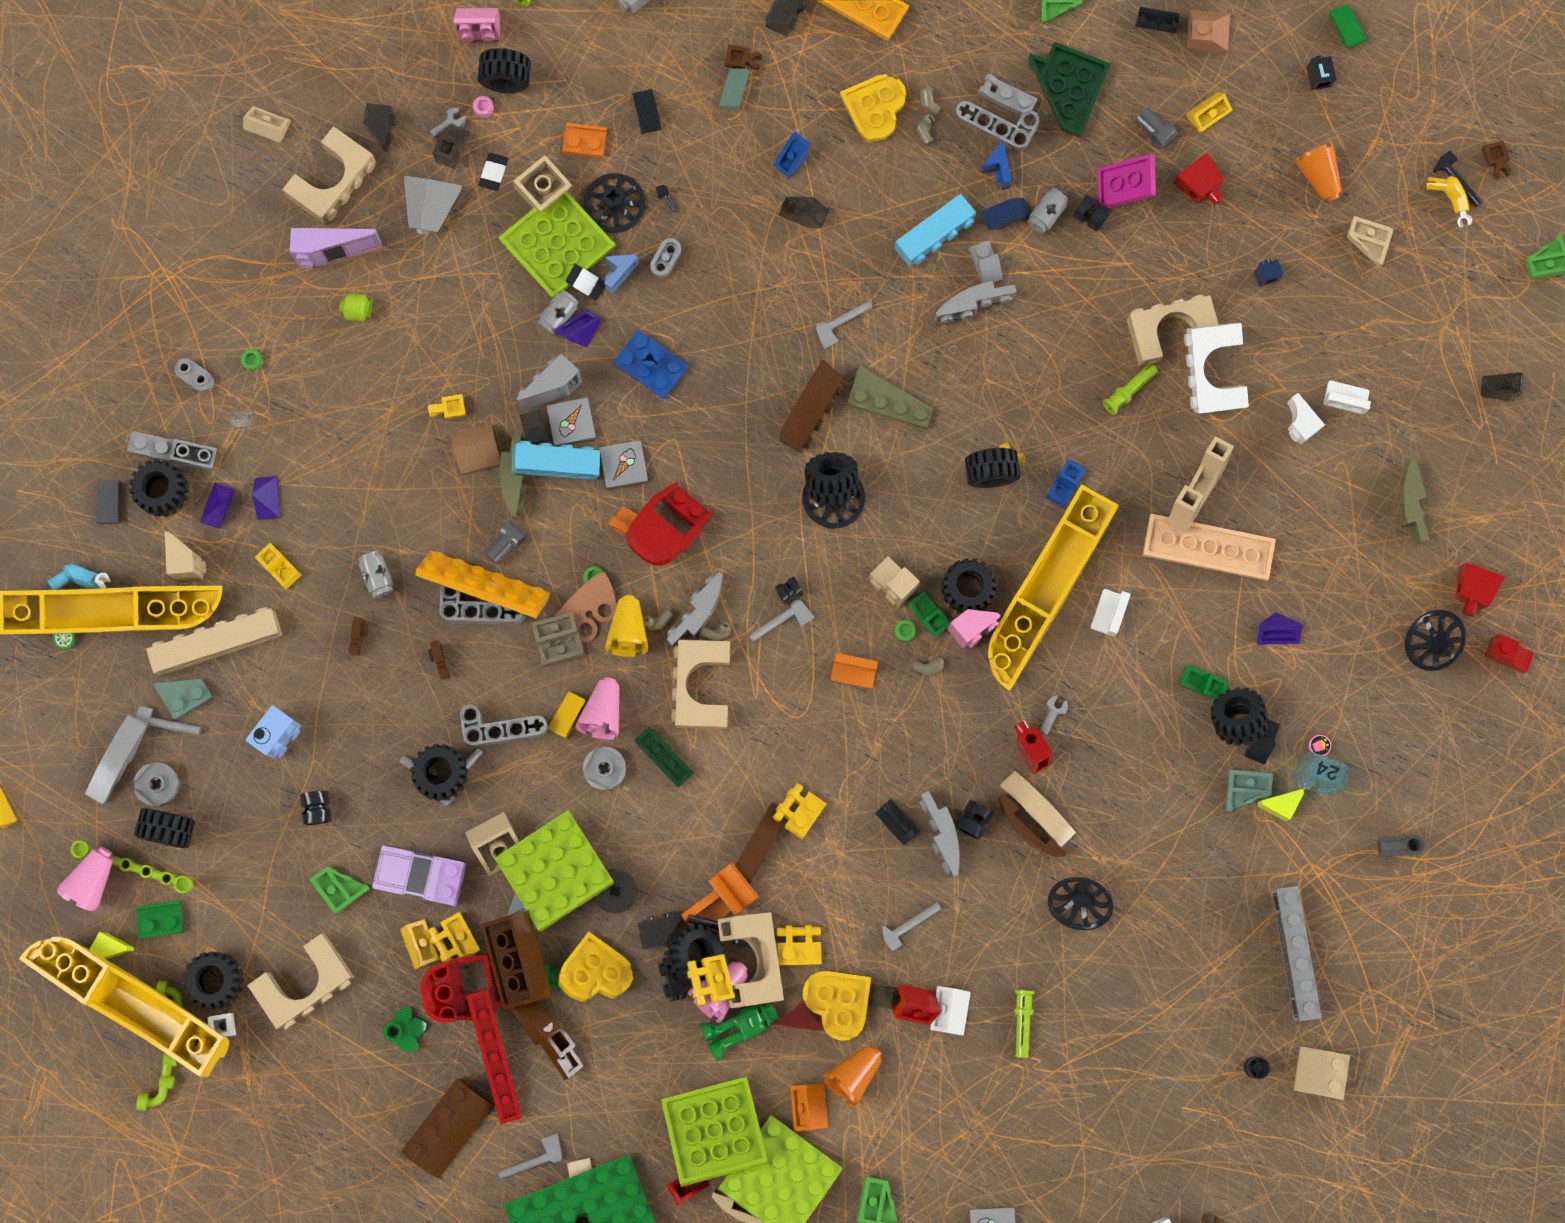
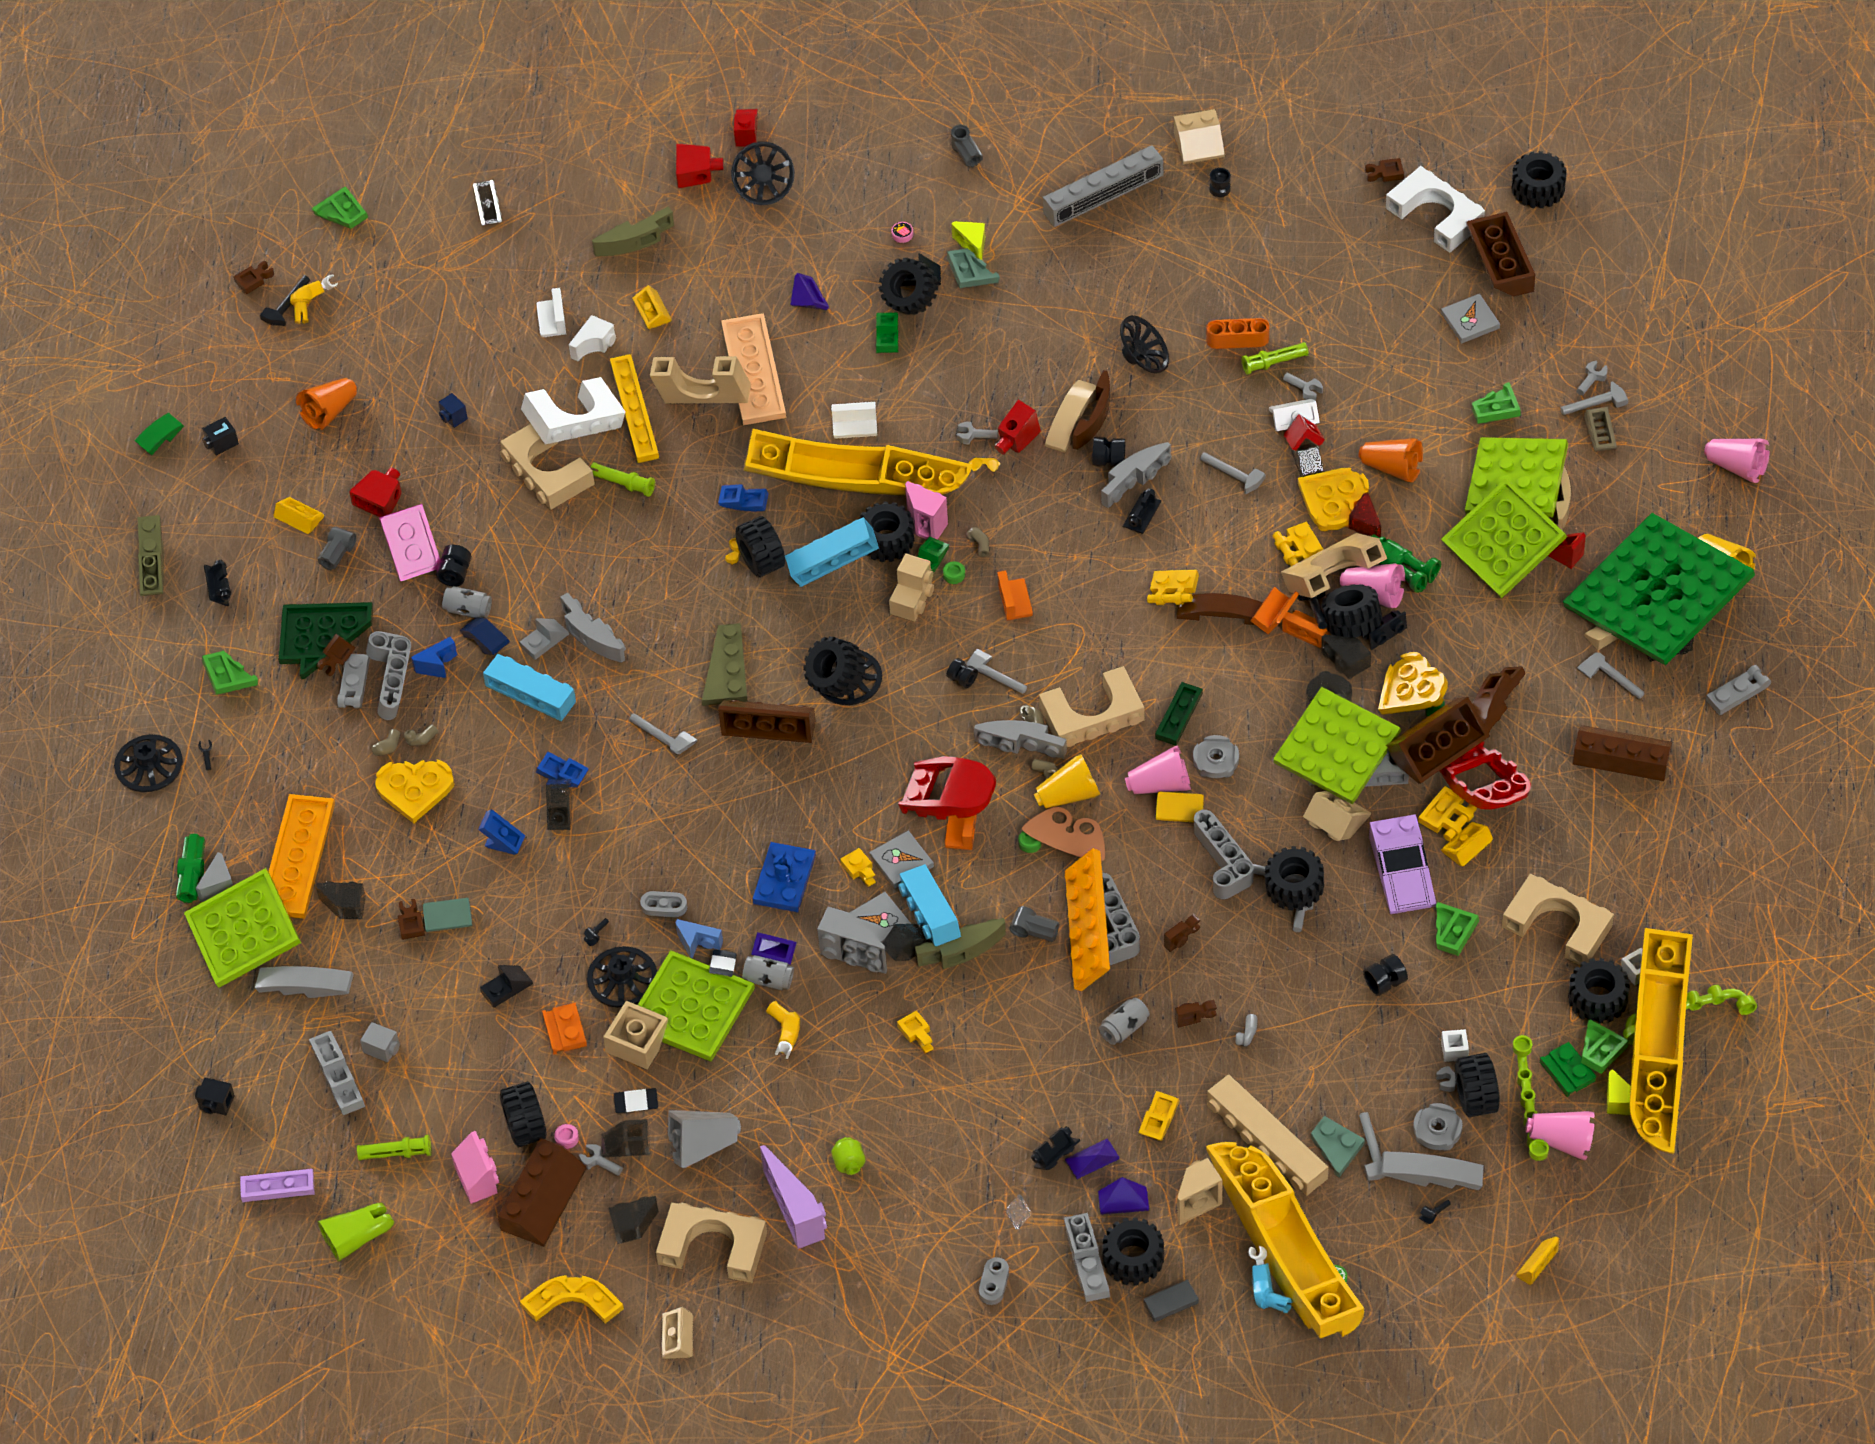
camera: 105 degrees left, 25 degrees down
(82, 738) = (1429, 1215): none -> black hand
(162, 955) = (1601, 1047): none -> bright green wing
(206, 817) = (1446, 1072): none -> light grey bar
(214, 833) = (1454, 1044): none -> white plate
(252, 360) = (951, 1234): bright green tile -> none
(274, 733) = (1331, 1035): light blue brick -> none
(282, 471) = (1047, 1156): none -> black hinge
(320, 674) = (1250, 1030): none -> light grey arm
(340, 61) = (568, 1289): none -> yellow plate
(408, 1030) = (1550, 821): green plate -> none
(436, 66) = (541, 1193): none -> reddish brown slope
(476, 449) = (946, 991): medium nougat slope -> none
(494, 1056) = (1536, 731): red plate -> none
(495, 308) = (789, 1027): none -> yellow arm
(558, 639) = (1112, 841): dark tan slope -> none
(634, 427) = (858, 865): none -> yellow plate
(717, 980) = (1368, 570): yellow plate -> none
(809, 1107) = (1442, 486): orange panel -> none
(840, 228) = (557, 768): none -> blue slope
(959, 527) = (831, 552): none -> medium azure brick
(979, 1036) = (1305, 386): none -> light grey bar
(1010, 713) = (991, 463): none -> yellow piece
(1037, 85) = (337, 652): none -> reddish brown plate
(1072, 992) = (1237, 333): none -> orange beam
(1207, 427) = (635, 408): none -> yellow plate
(1208, 31) = (209, 544): nougat slope -> none
(1321, 488) = (651, 307): none -> yellow slope
(1321, 774) = (931, 214): clear light blue brick -> none
(1370, 238) = (381, 345): tan wing -> none

